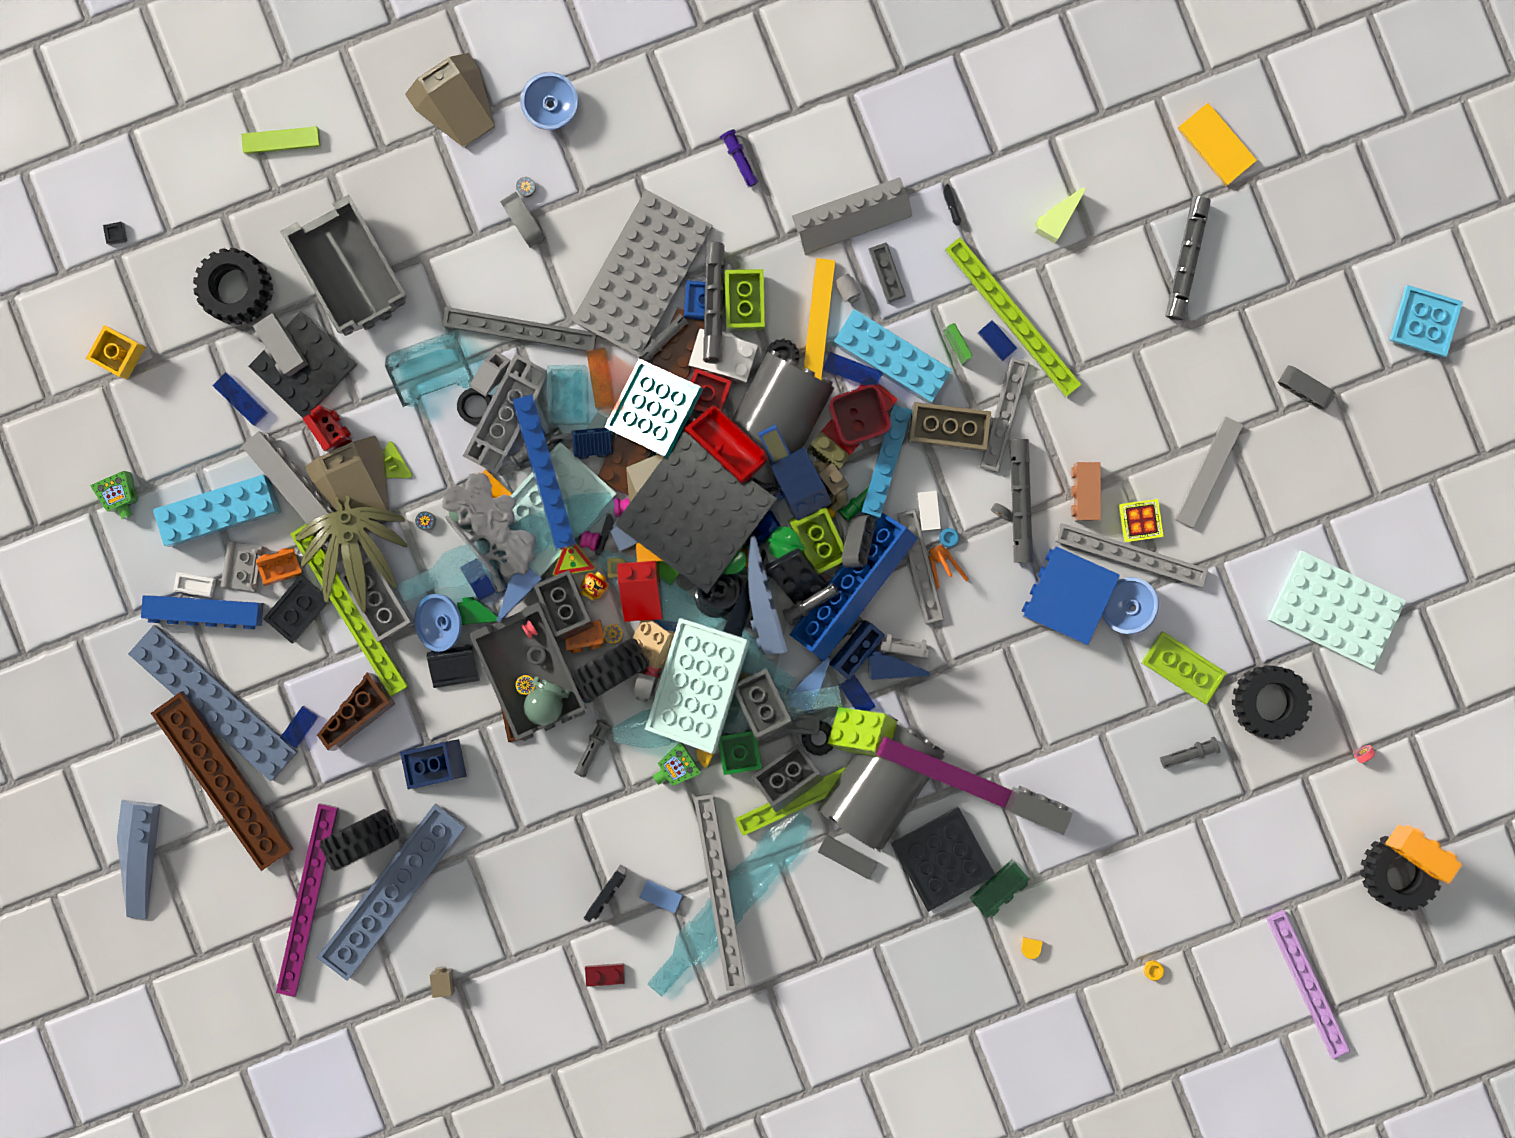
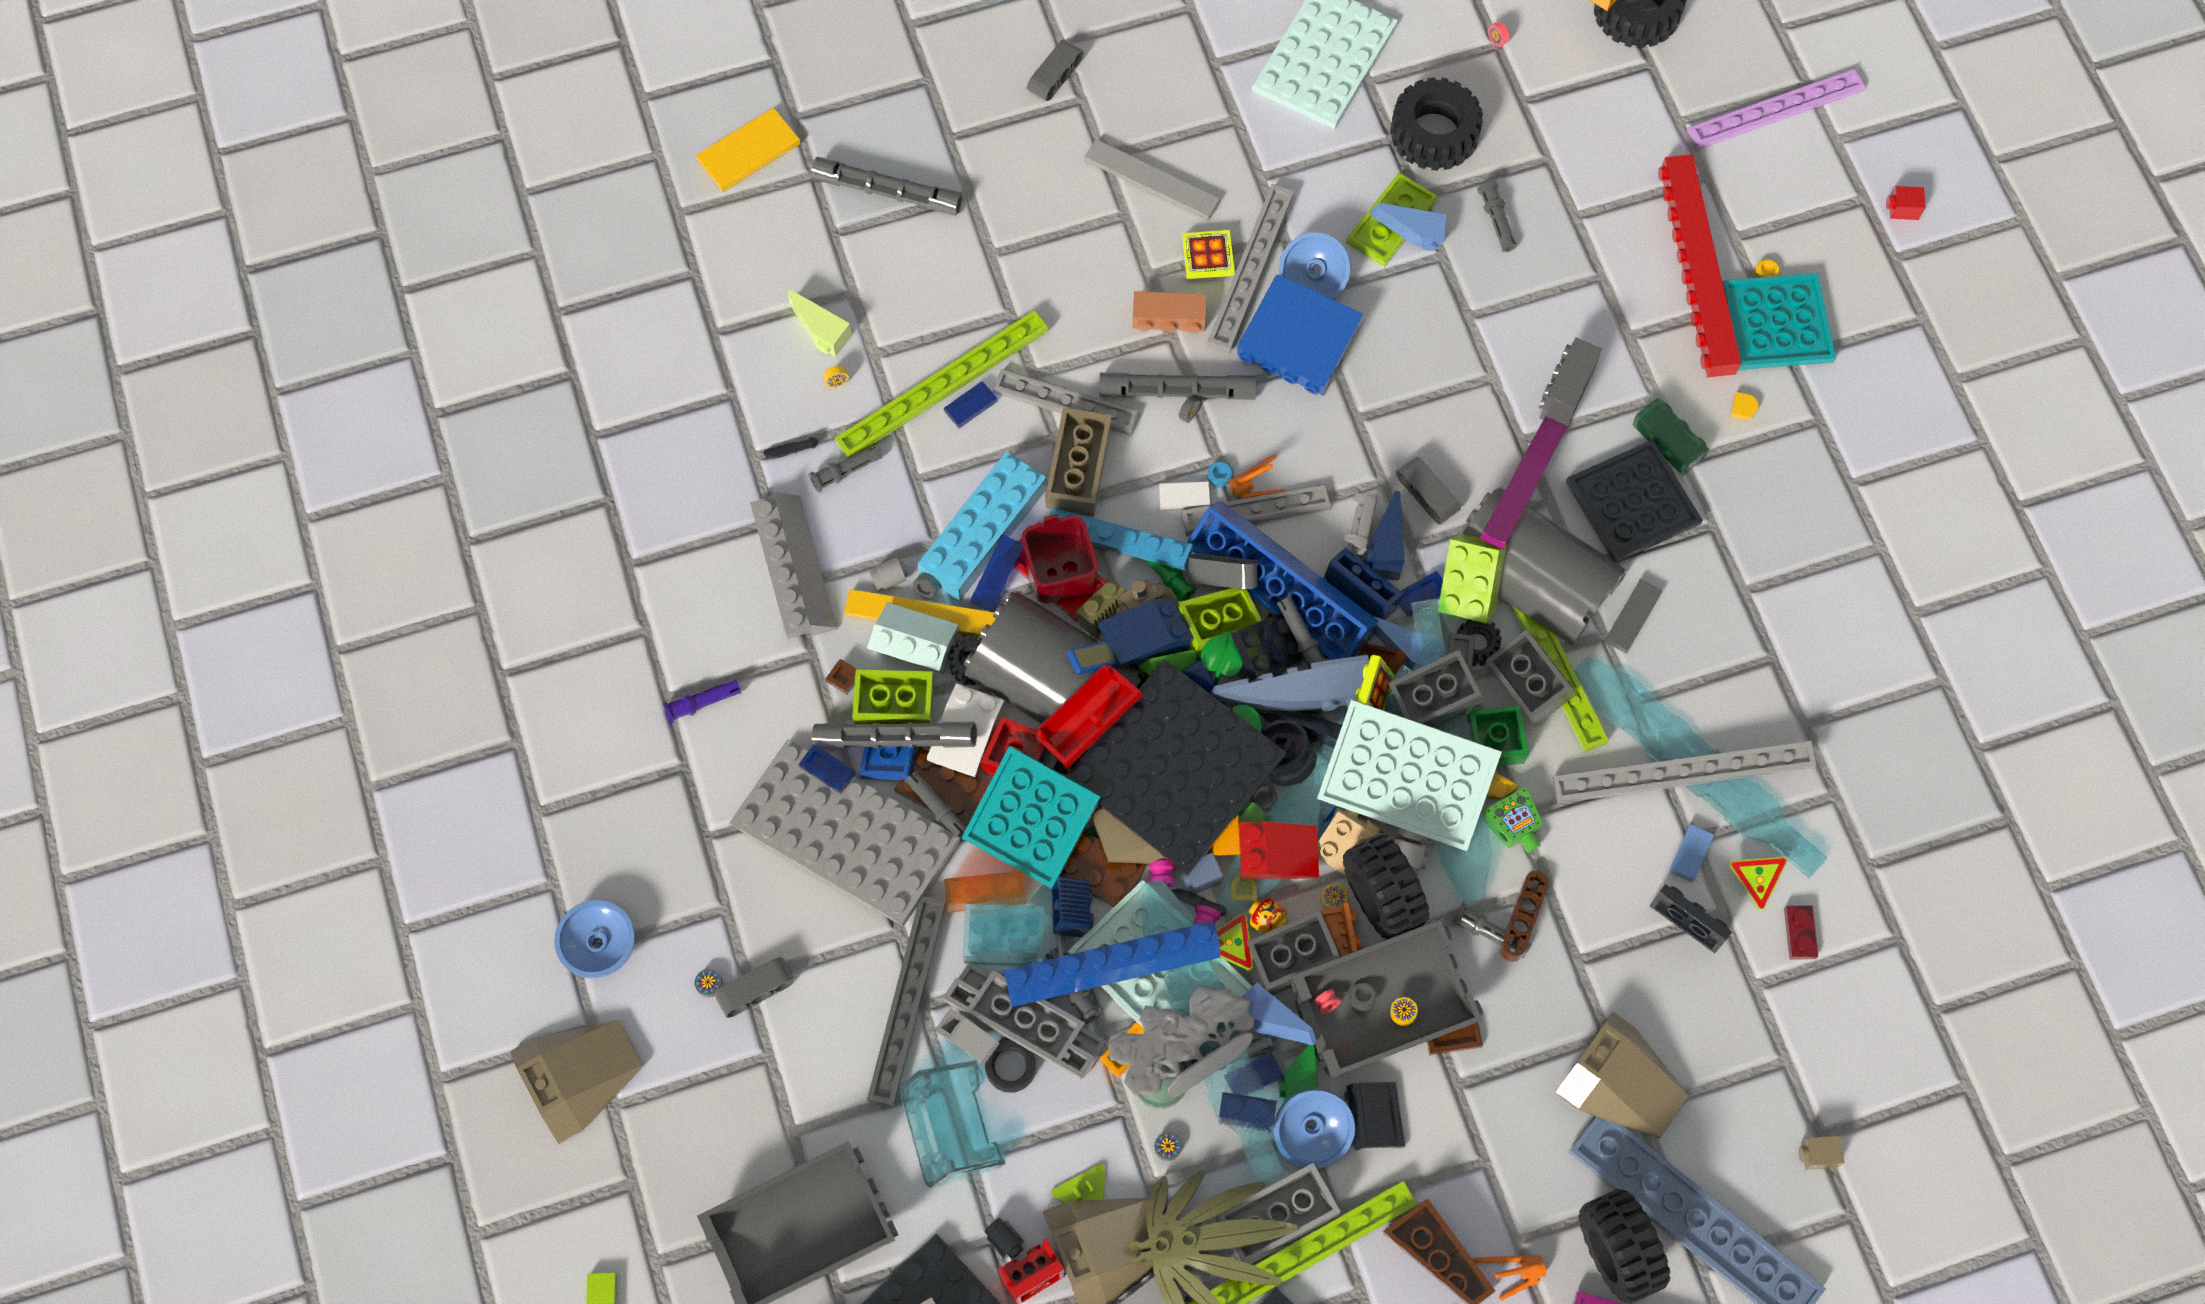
camera: 90 degrees left, 20 degrees down
(350, 776) = (1531, 1269): none -> orange plant
(353, 410) = (1004, 1239): none -> black brick
(433, 764) = (1514, 1150): dark blue slope -> none
(441, 573) = (1247, 1112): none -> dark blue brick
(486, 843) = (1624, 1081): none -> dark tan wedge
(544, 703) = (1430, 979): sand green tile -> none
(602, 774) = (1526, 916): none -> reddish brown beam
(643, 945) = (1759, 876): none -> piece
(686, 255) = (827, 769): none -> clear blue tile
(763, 658) = (1375, 685): none -> tile
(764, 261) = (842, 676): none -> reddish brown plate
(780, 506) = (1179, 660): none -> bright green slope
(795, 311) = (913, 637): none -> light aqua slope
(797, 663) = (1392, 657): none -> reddish brown tile
(840, 317) = (926, 585): none -> dark grey tile
(886, 272) = (871, 529): dark grey tile -> none
(931, 240) = (835, 472): none -> dark grey pin
(942, 699) = (1428, 490): none -> dark grey beam
(958, 343) = (973, 444): bright green tile -> none
(1013, 233) = (835, 376): none -> yellow tile
(1107, 977) = (1779, 321): none -> teal plate
(1155, 915) = (1699, 266): none -> red brick
(1174, 685) = (1414, 225): none -> medium blue slope
(1222, 1086) = (1906, 202): none -> red brick

